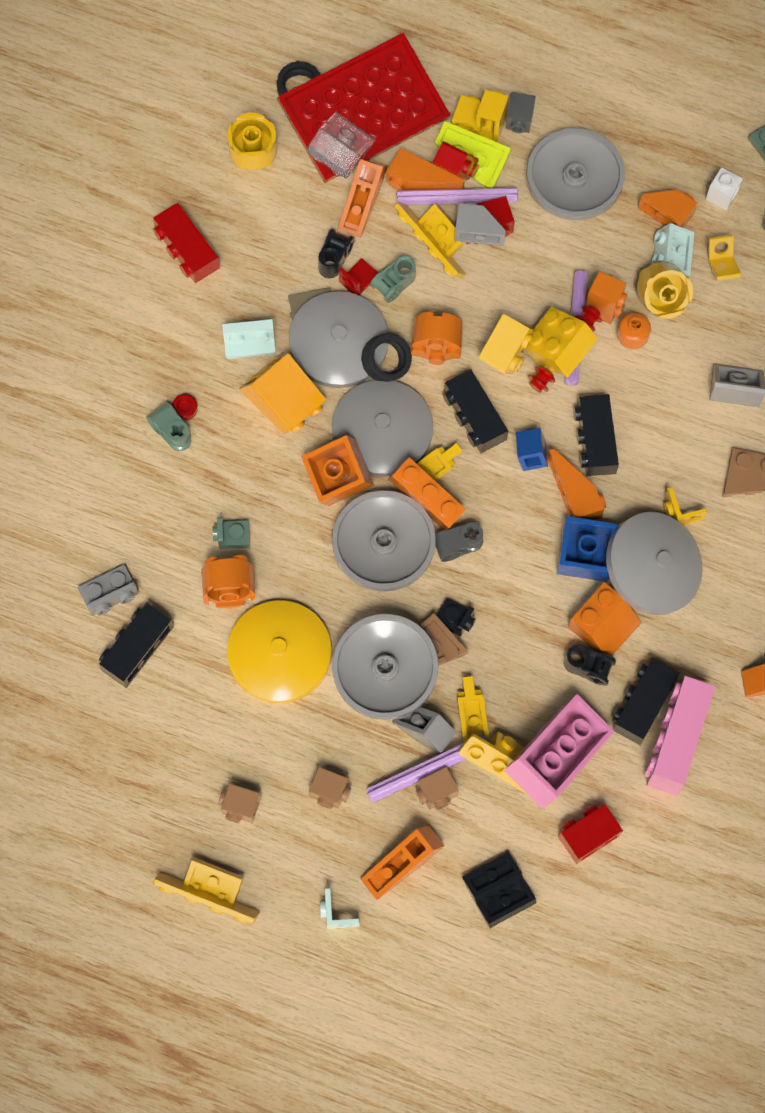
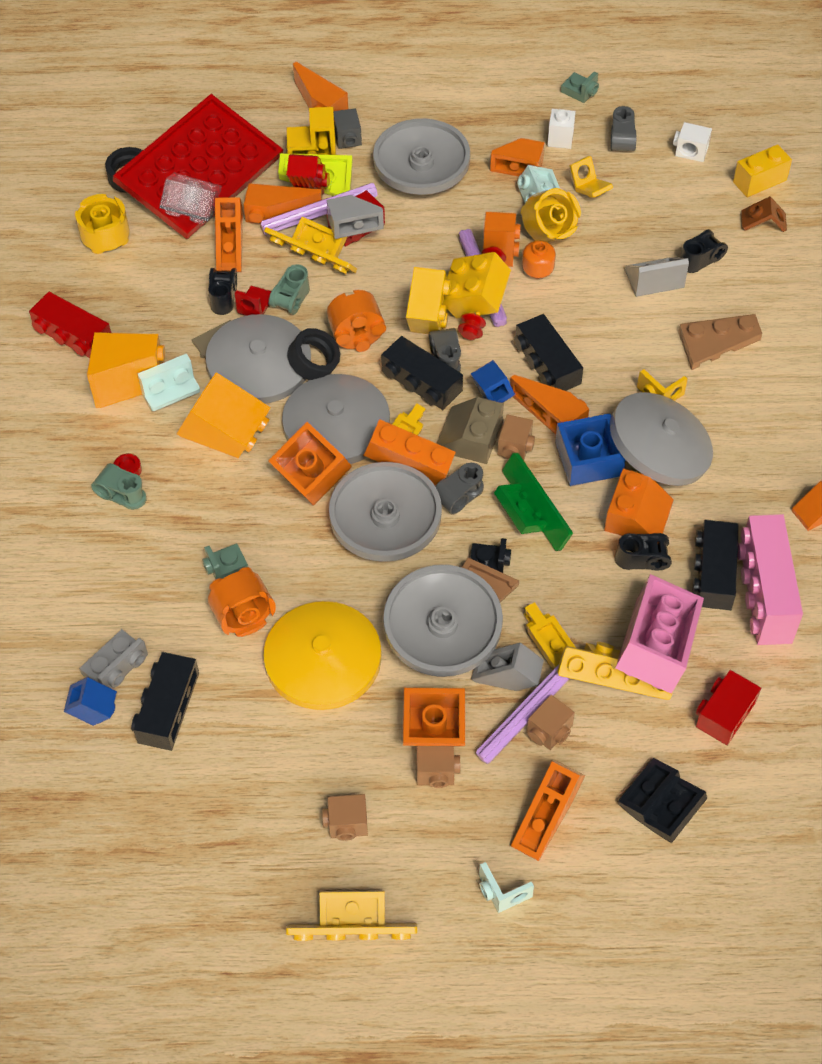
camera: 20 degrees left, 15 degrees down
(74, 623) = (90, 701): none -> blue brick
(210, 305) = (116, 365): none -> light orange slope
(342, 750) = (434, 717): none -> orange slope
(494, 486) = (473, 429): none -> dark tan slope
(508, 394) = (446, 347): none -> dark grey piece
(510, 580) = (530, 505): none -> green bracket
(513, 69) = (317, 90): none -> orange slope
(529, 510) = (516, 437): none -> medium nougat brick

